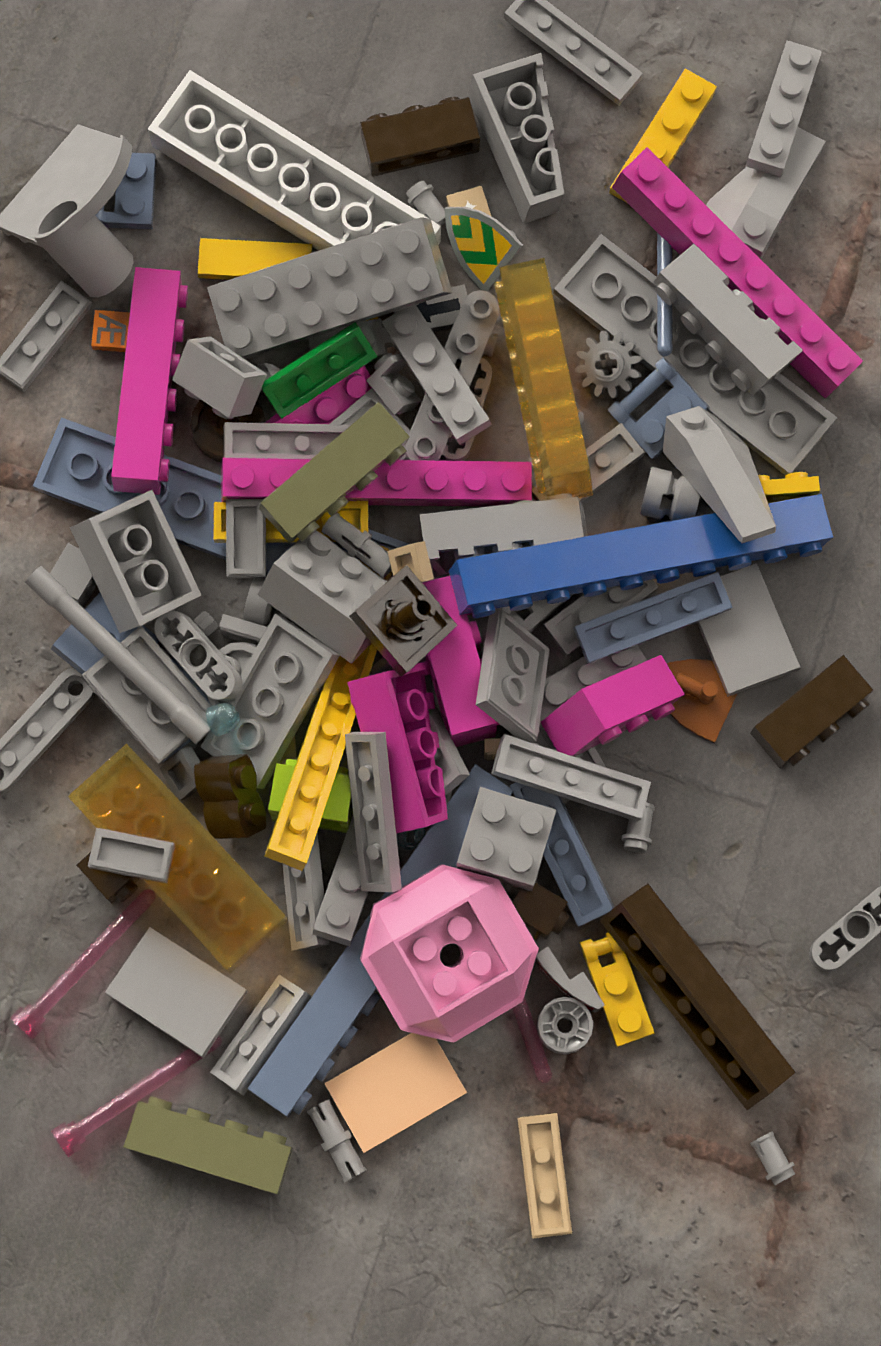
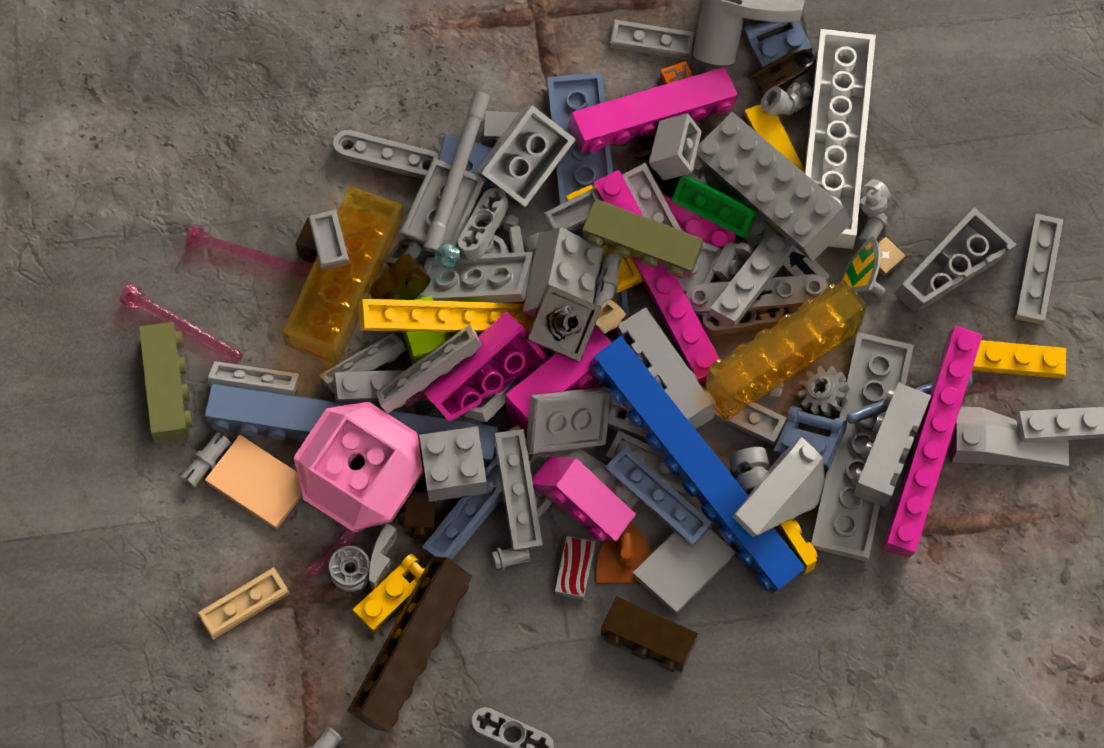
camera: 65 degrees right, 10 degrees down
(170, 195) = (788, 70): none -> dark brown piece
(176, 992) = (256, 316): light grey tile -> none
(213, 225) = (780, 102): none -> light grey arm
(402, 184) = (874, 198): none -> light grey arm
(420, 135) = (919, 201): dark brown brick -> none
(686, 758) = (575, 567): none -> tile

